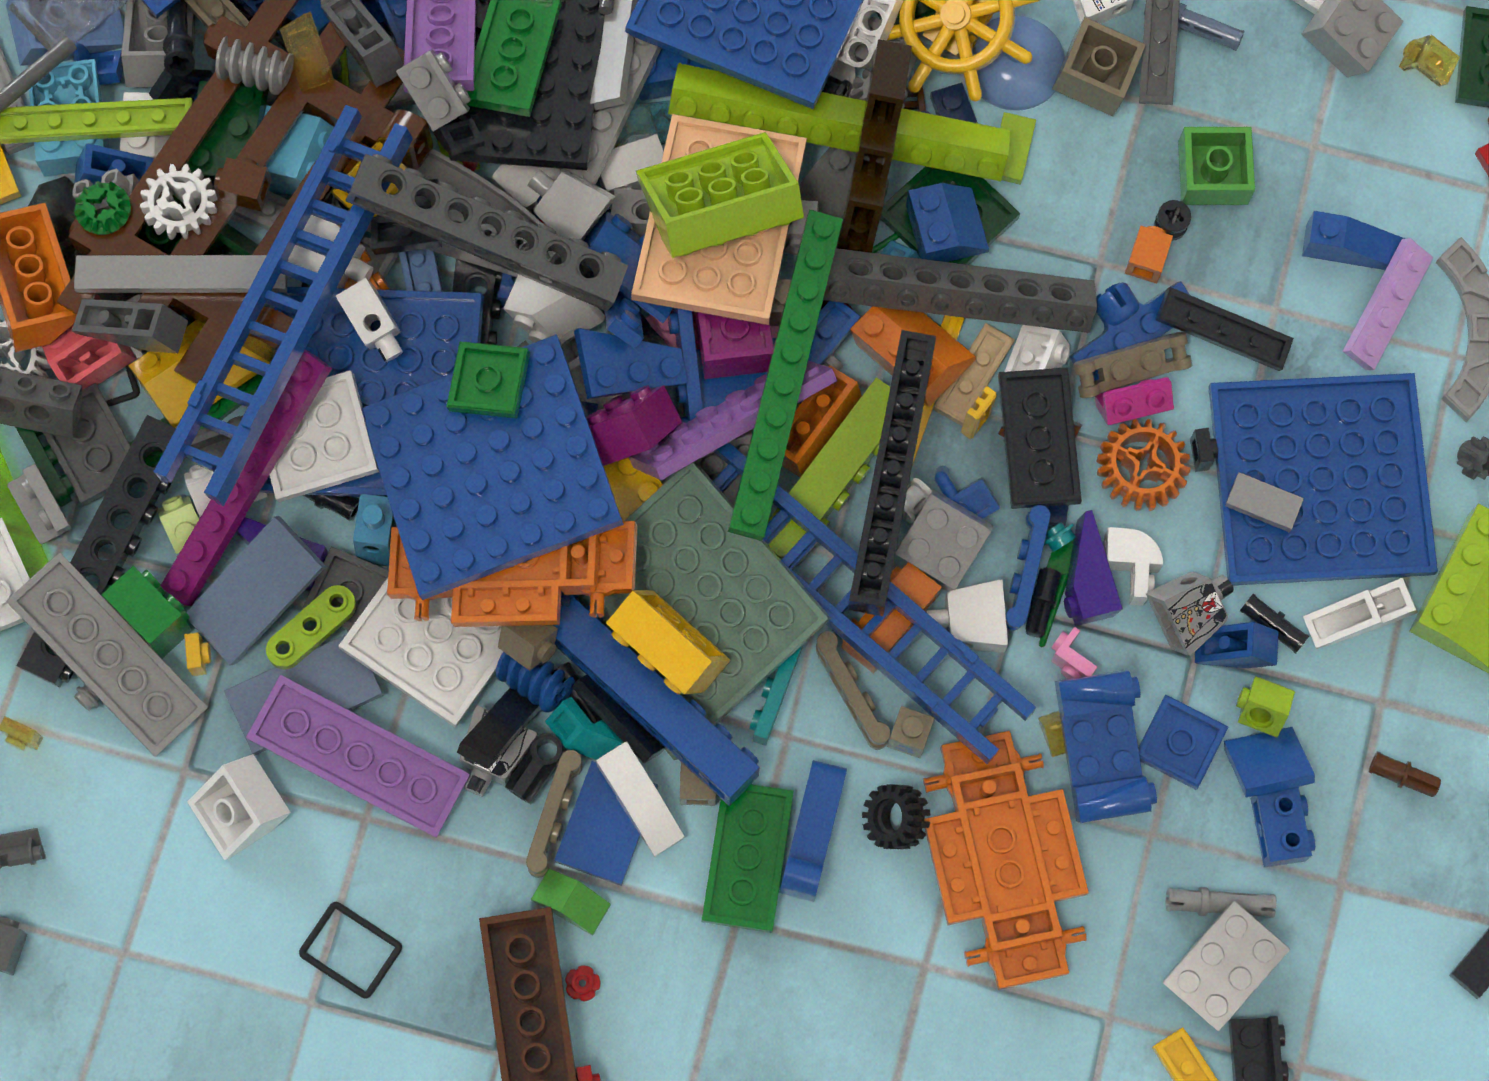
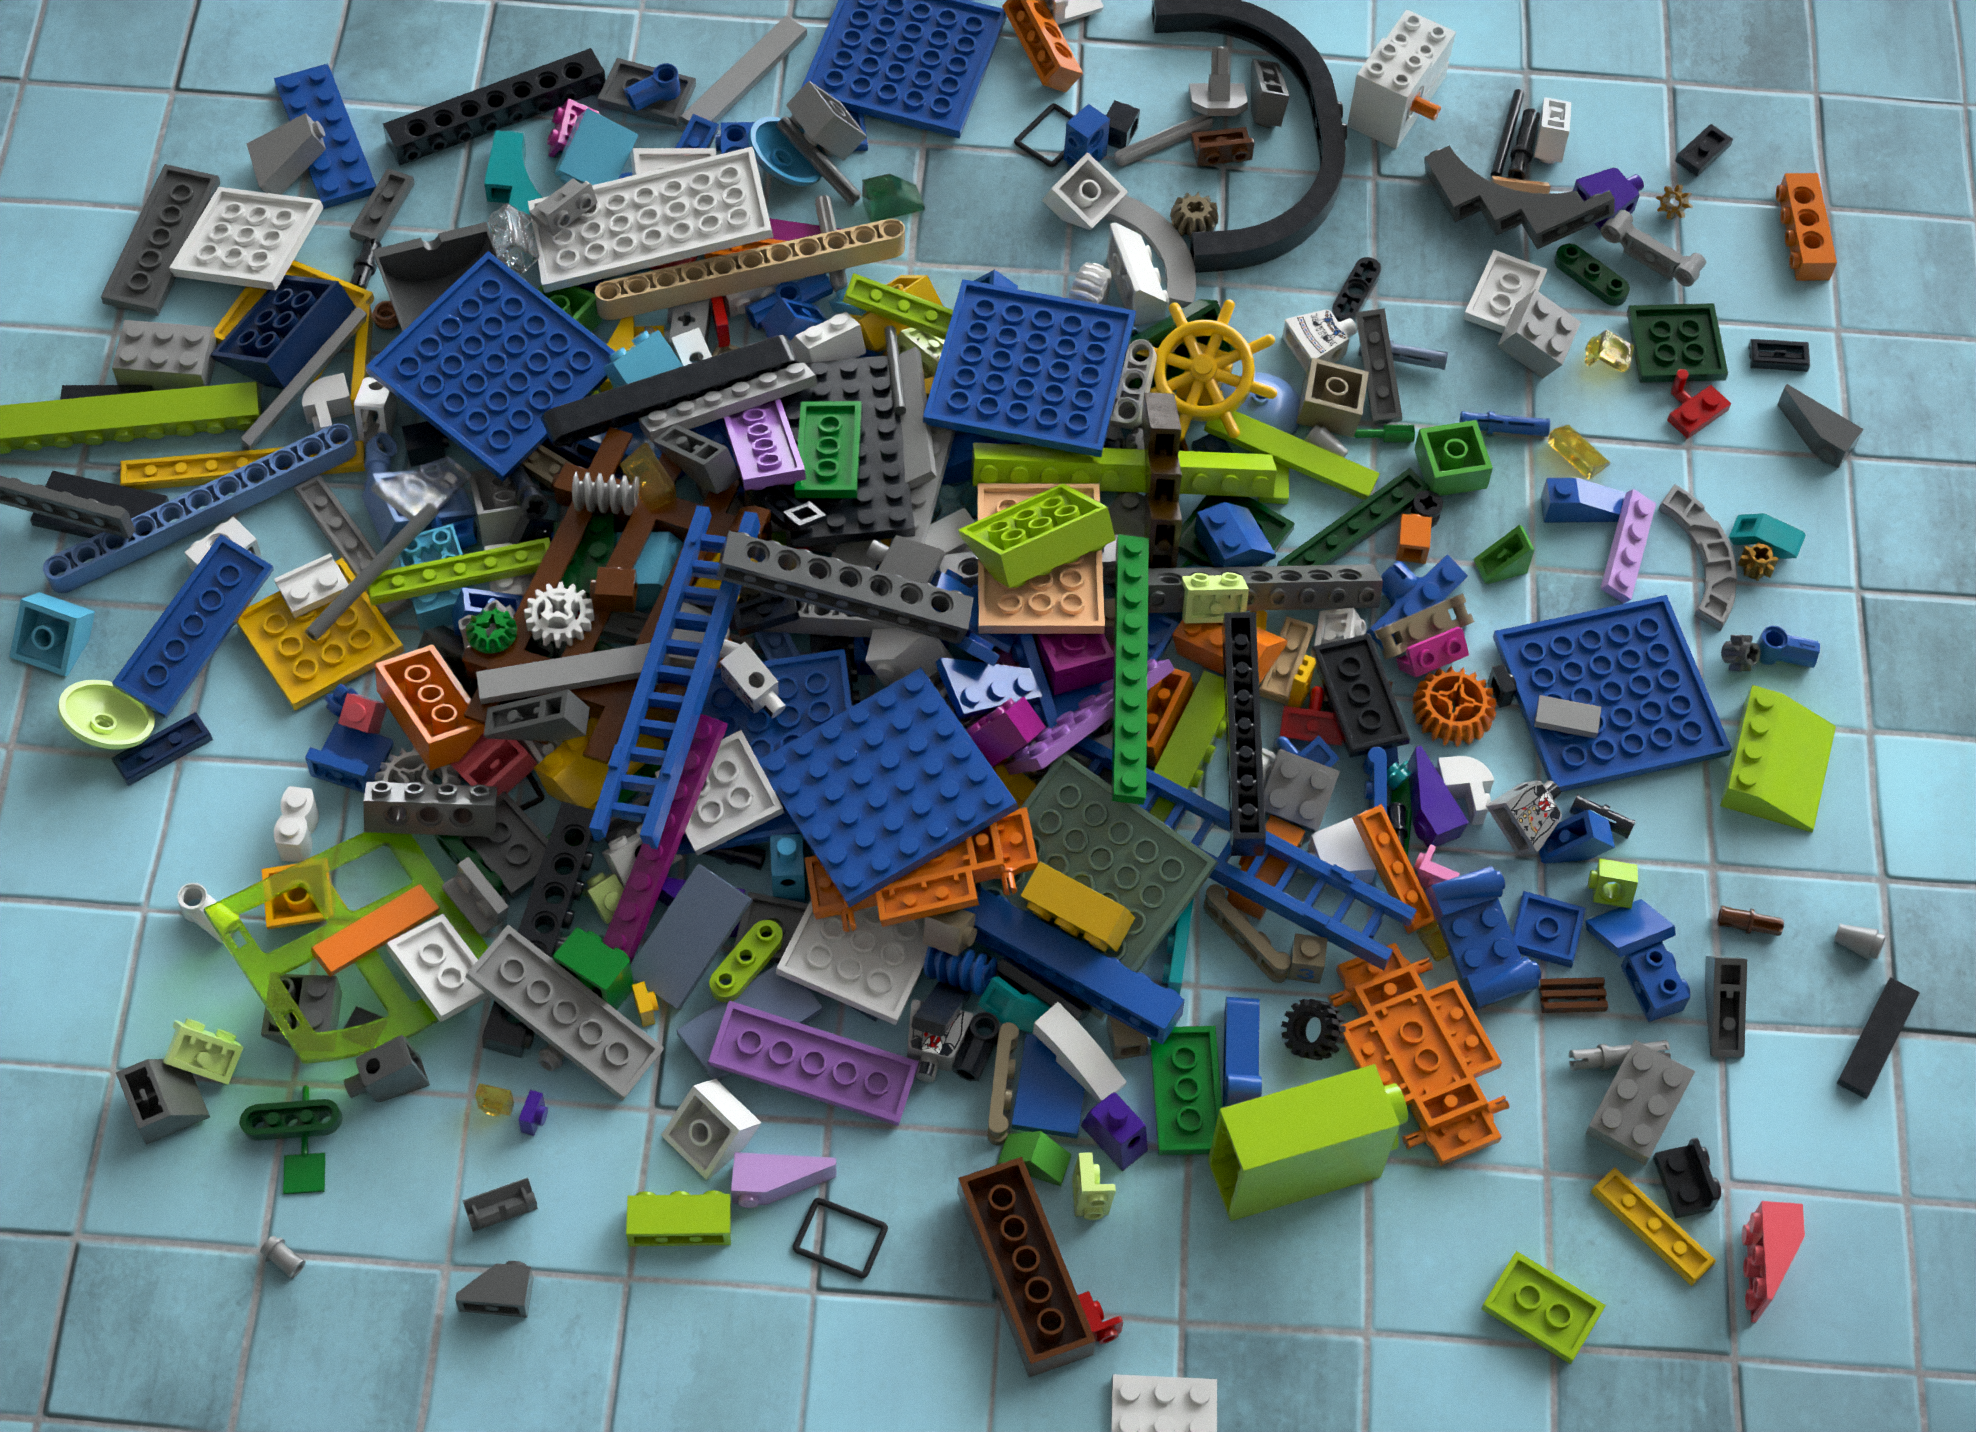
camera: 10 degrees left, 15 degrees down
(57, 755) = (533, 1113): none -> dark purple plate
(185, 901) = (678, 1219): none -> lime brick
(290, 874) = (770, 1177): none -> lavender slope
(433, 89) = (773, 479): light grey bracket -> none
(488, 379) = (869, 712): green tile -> none
(584, 973) = (1063, 1235): red plate -> none
(613, 951) = (1089, 1196): none -> yellowish green bracket
(661, 891) = (1113, 1127): none -> dark purple torso
(853, 951) = (1305, 1141): none -> lime brick
(902, 300) = (1211, 596): none -> yellowish green bracket
(980, 457) = (1311, 722): none -> red plate
(1027, 645) = (1393, 864): none -> orange tile
(1045, 131) = (1299, 455): none -> lime tile
(1078, 121) = (1325, 439): none -> light grey cone
(1089, 225) = (1358, 522): none -> dark green plate
(1155, 118) = (1389, 433): none -> green axle
(1219, 827) = (1556, 989): none -> reddish brown tile
(1224, 329) = (1495, 586): black tile -> none
(1248, 294) = (1506, 557): none -> bright green slope
(1326, 139) = (1508, 424): none -> blue pin
(1351, 866) = (1726, 1004): none -> dark grey slope
(1360, 614) = (1676, 795): white slope -> none
(1362, 176) = (1577, 451): none -> clear yellow slope

